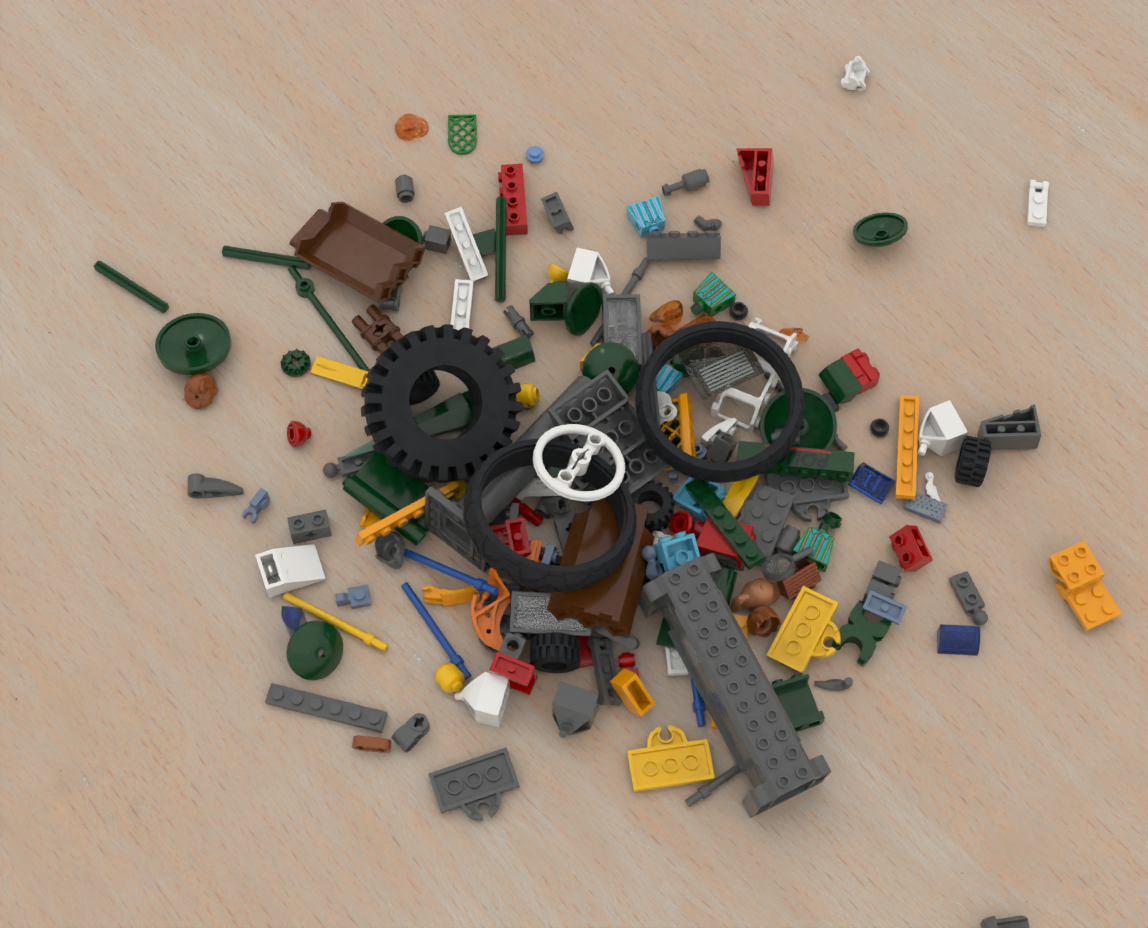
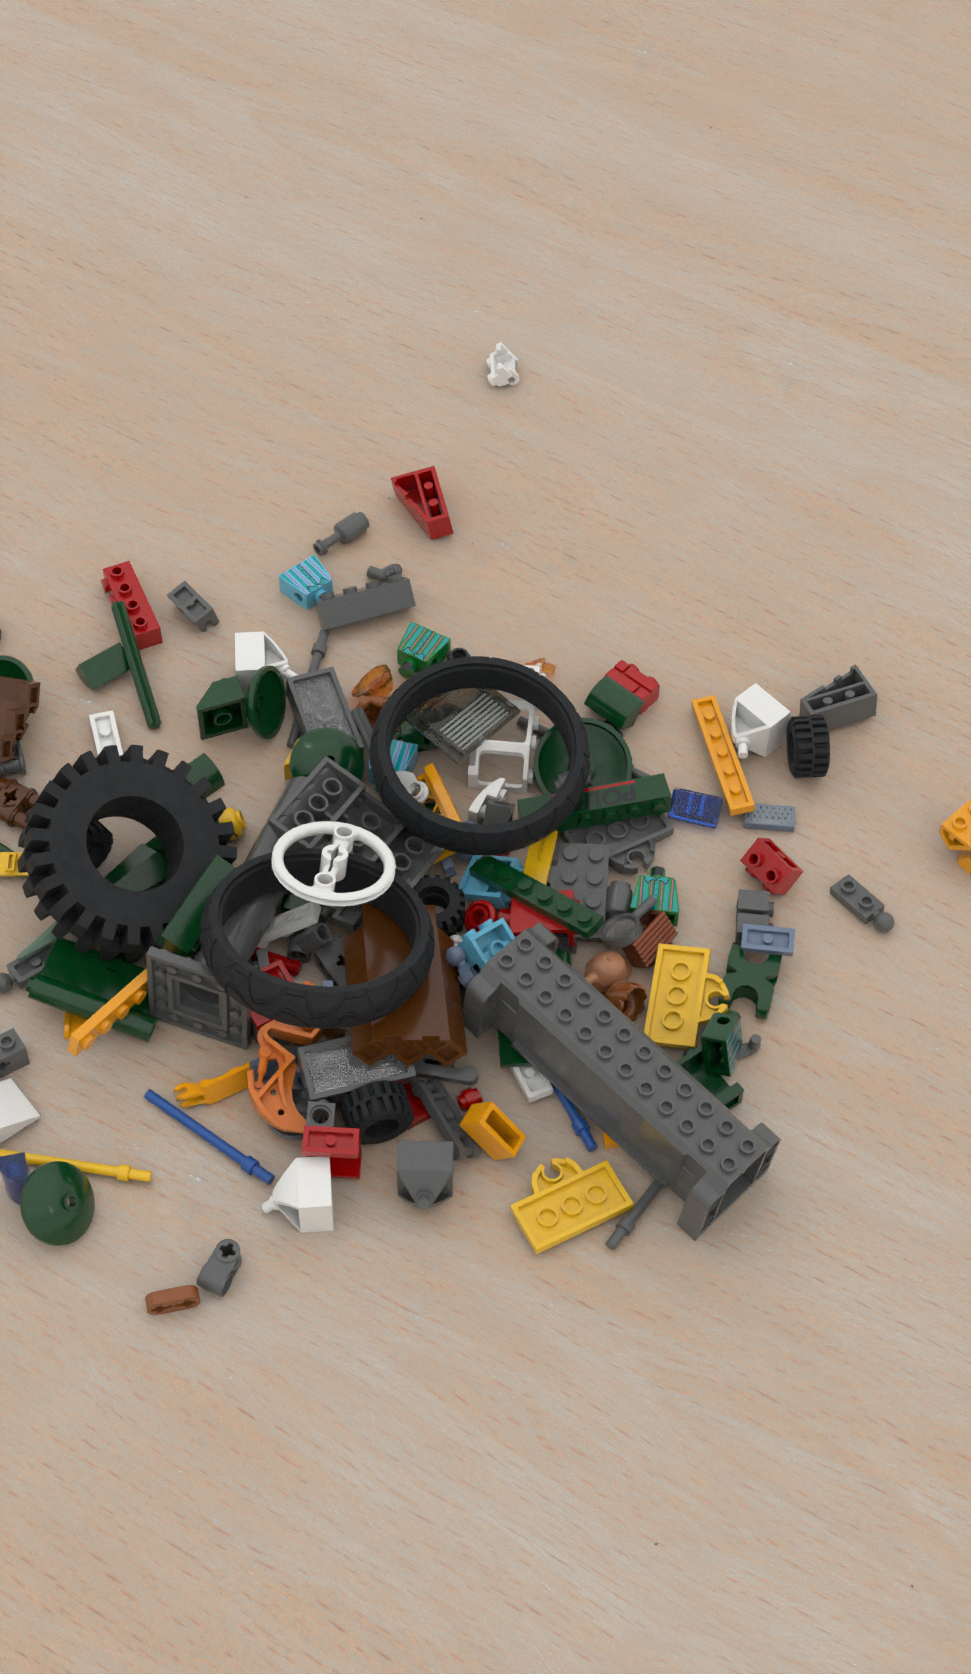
camera: 20 degrees left, 10 degrees down
(326, 708) = (94, 1275): dark grey plate -> none
(357, 597) = (89, 1126): sand blue plate -> none
(390, 549) = (115, 1054): dark grey hair -> none
(437, 239) = (51, 675): dark grey brick -> none
(449, 678) = (248, 1187): yellow head -> none
(450, 117) = (35, 531): green window -> none
(459, 475) = (183, 929): none -> dark green brick
(466, 244) = (90, 668): white plate -> none
(475, 784) = (327, 1307): dark grey plate -> none
(479, 584) = (250, 1056): blue bar -> none
(518, 322) = (186, 743): dark grey pin -> none
(535, 154) = (140, 550): medium blue plate -> none
(557, 274) = (216, 672): yellow brick -> none
(822, 676) = (725, 1032): none -> dark green torso
(833, 520) = (664, 861): dark green plate -> none
(879, 423) = (680, 738): black plate -> none
(880, 229) = (598, 524): dark green dish -> none
(930, 488) = (767, 795): white piece -> none
(958, 640) = (868, 954): clear blue brick -> none
(1037, 203) = (769, 452): white plate -> none

